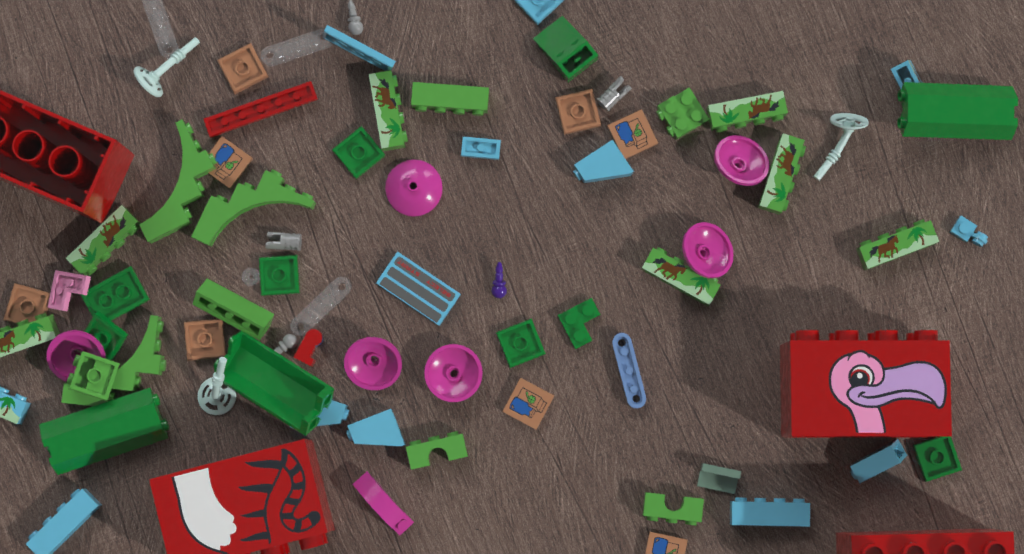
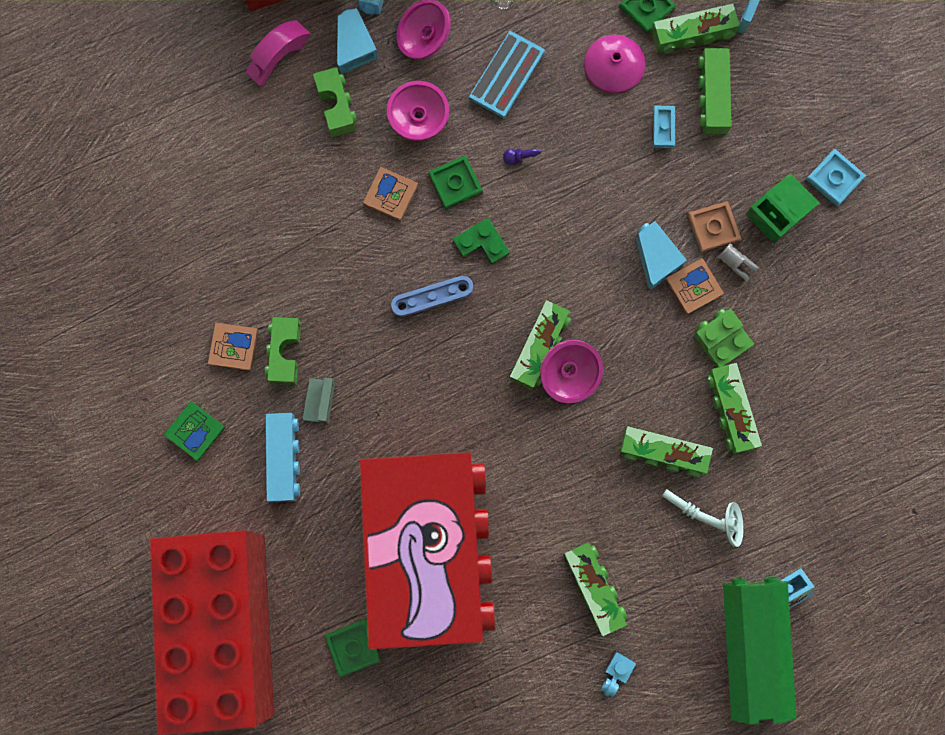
camera: 85 degrees right, 5 degrees down
(741, 160) = (684, 406): dark pink dish -> none
(878, 461) = (344, 578): medium azure slope -> none

